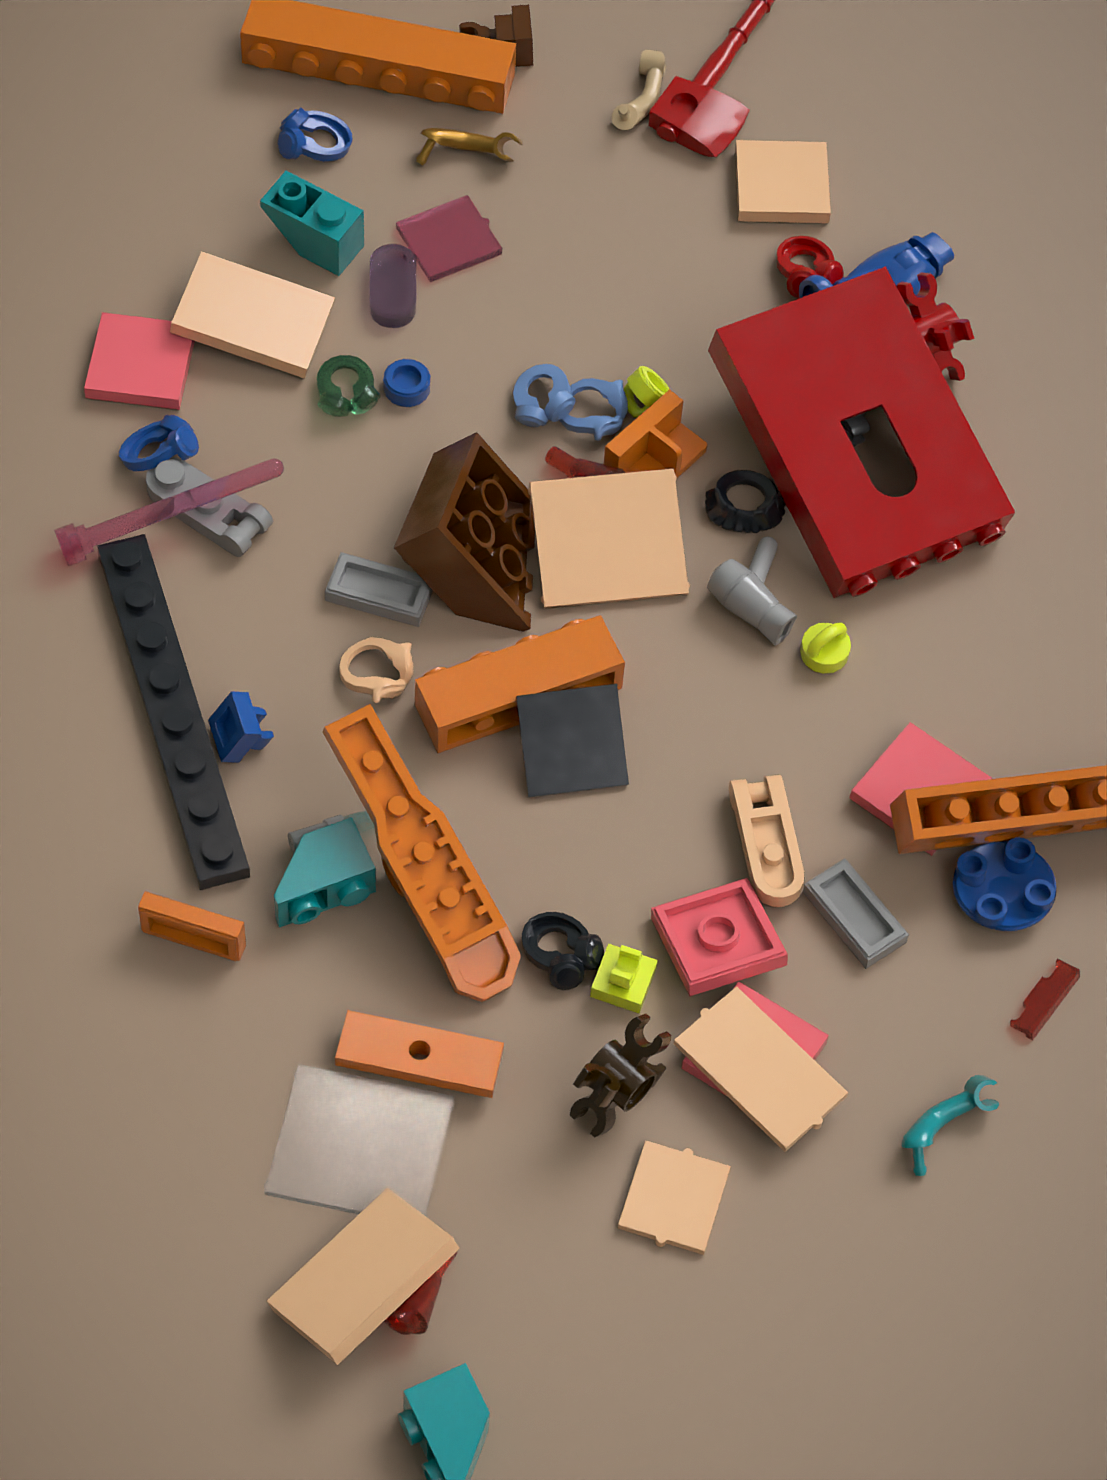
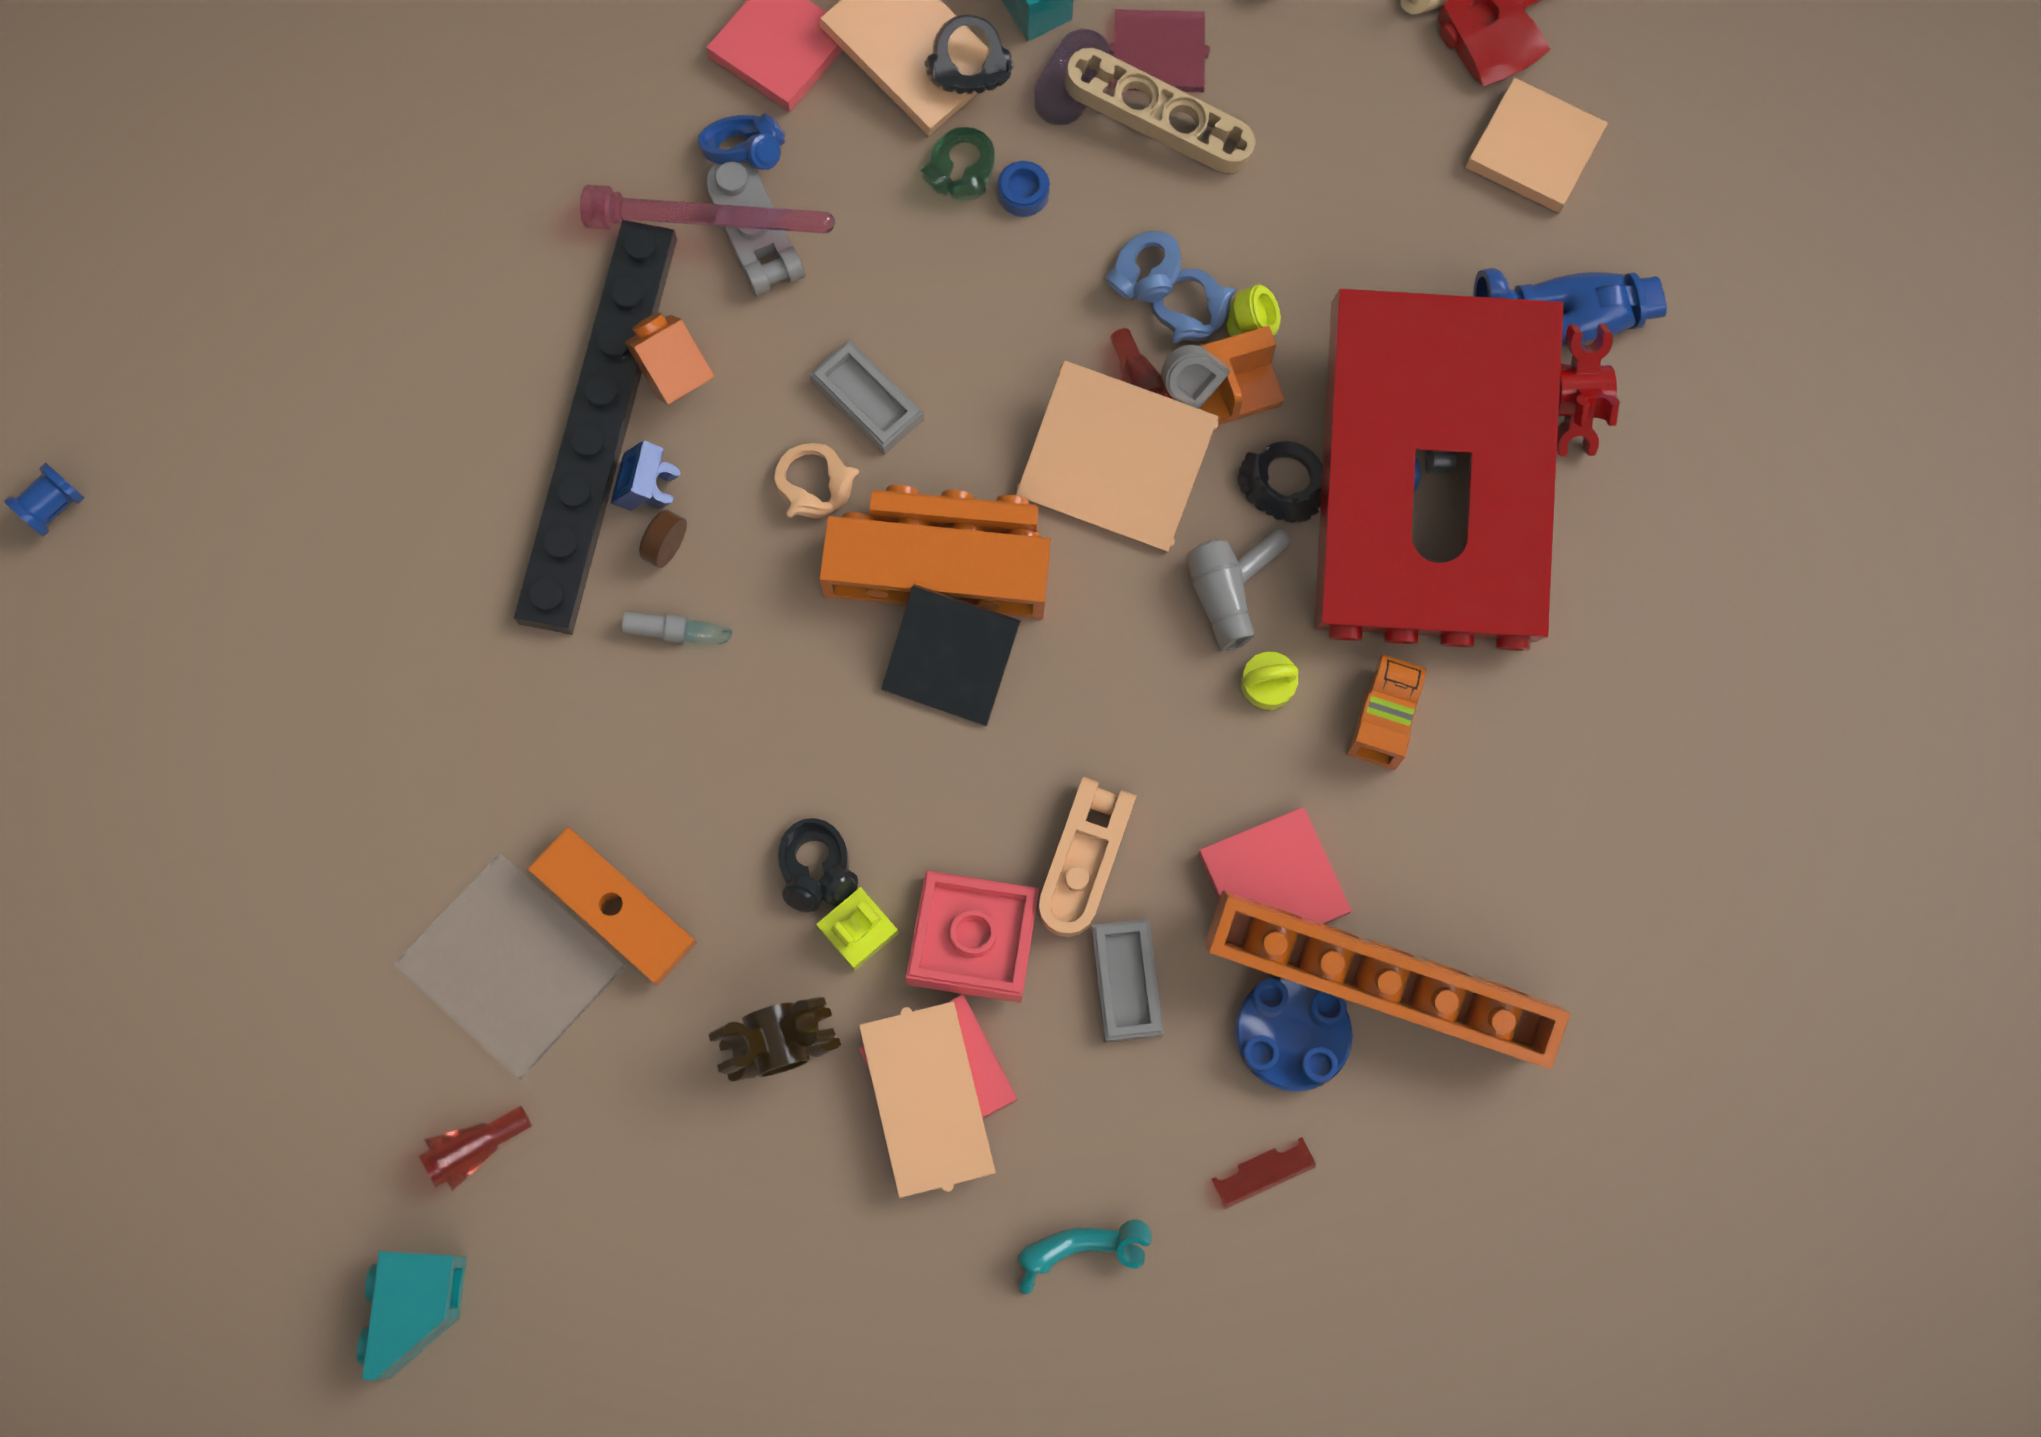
camera: 30 degrees right, 15 degrees up
(192, 926) = (476, 662): orange tile -> none
(207, 625) = (668, 357): none -> orange brick
(285, 764) = (662, 538): none -> reddish brown tile
(325, 872) = (632, 670): teal slope -> none
(334, 302) = (945, 73): none -> black piece
(362, 1275) = (417, 1109): light nougat tile -> none
(426, 860) = (718, 715): orange piece -> none
(472, 534) = (981, 383): reddish brown wedge -> none
(480, 271) = (1155, 118): none -> tan beam
(508, 631) = (953, 508): none -> orange tile
(634, 448) = (1193, 374): none -> light grey tile
(674, 1197) = (771, 1181): light nougat piece -> none
(824, 264) = (1522, 267): red piece -> none
(929, 627) = (1387, 713): none -> orange leg

